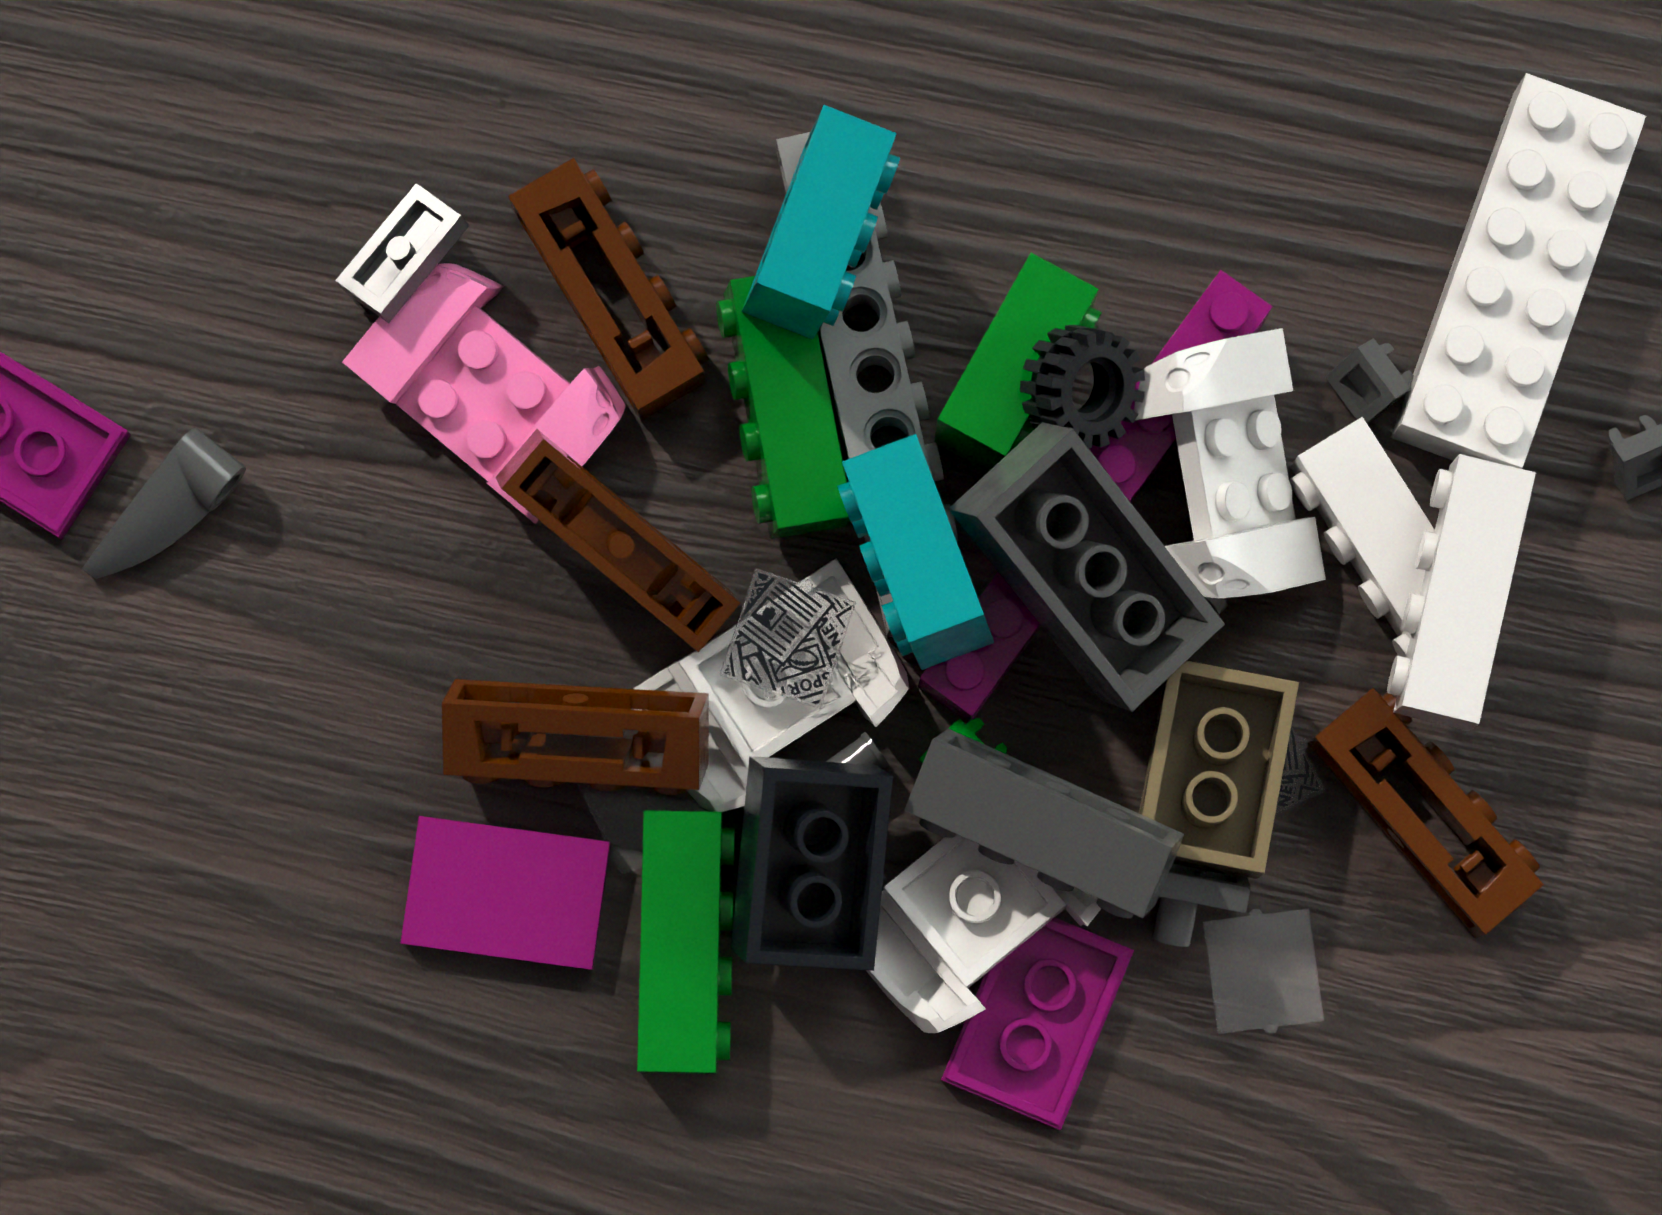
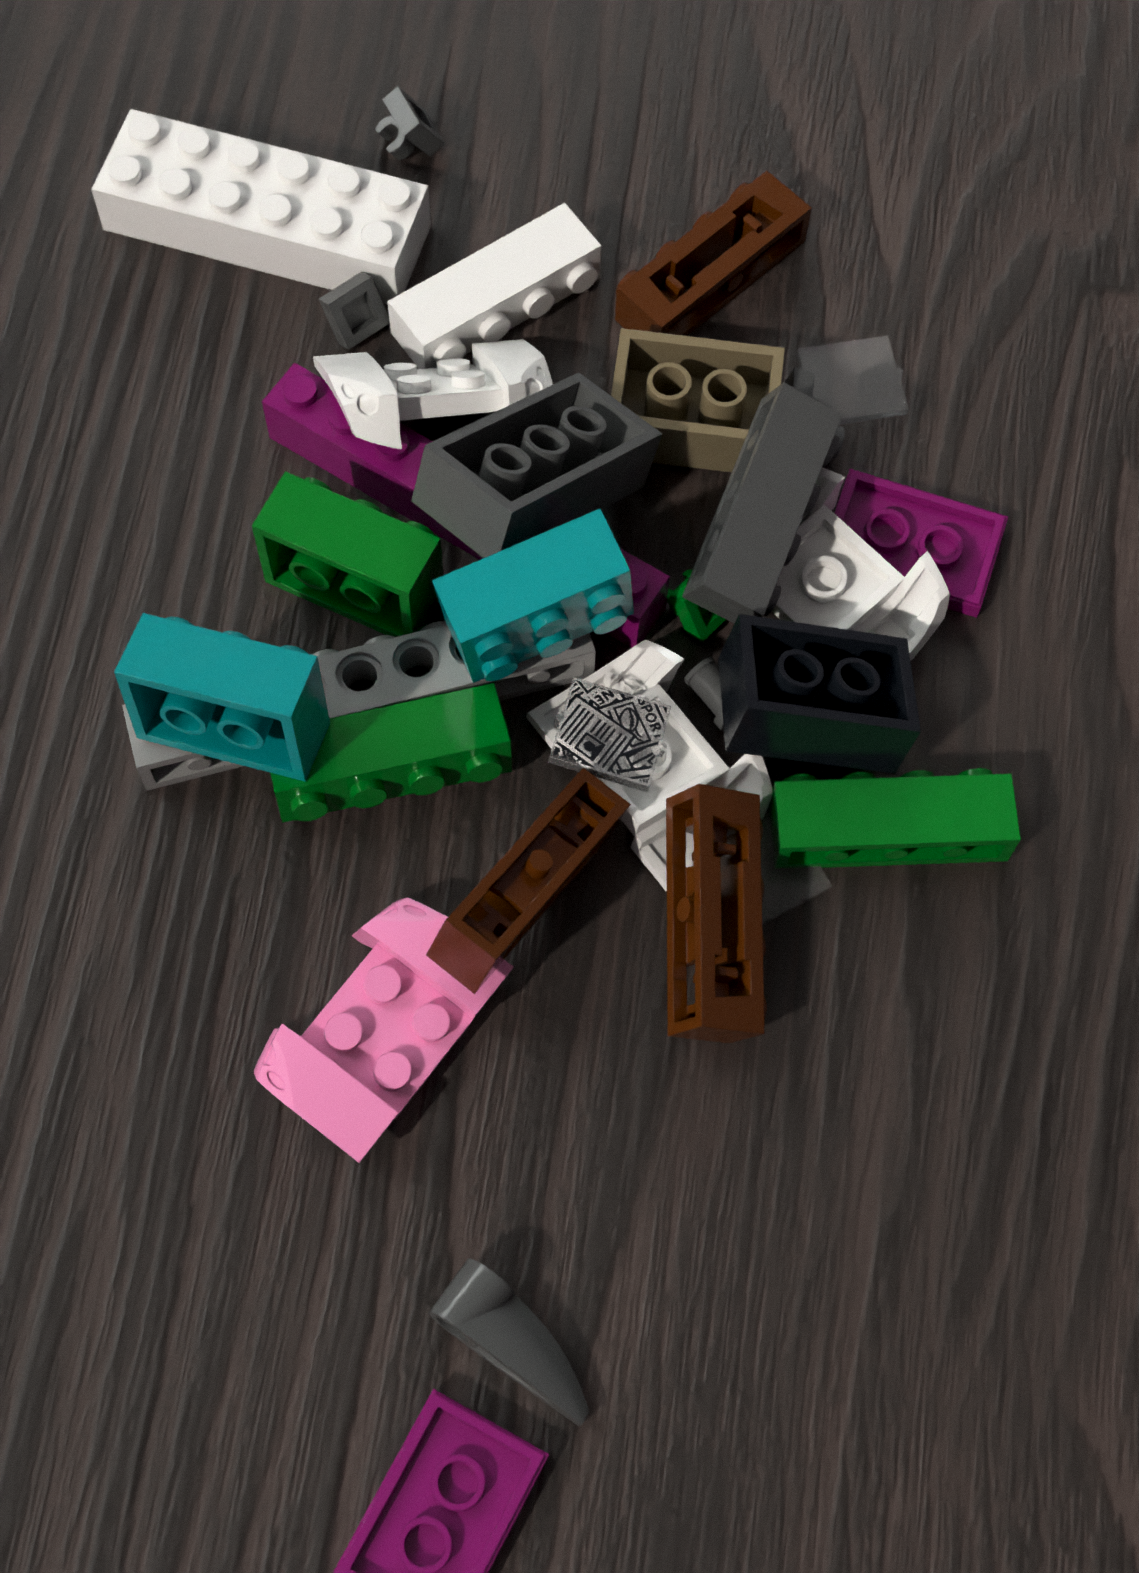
camera: 95 degrees left, 15 degrees down
(401, 253) = (249, 1105): panel -> none
(505, 892) = (863, 984): magenta tile -> none
(557, 201) = (197, 953): reddish brown brick -> none
(1111, 390) = (371, 477): black tyre -> none
(1462, 592) = (536, 213): white brick -> none

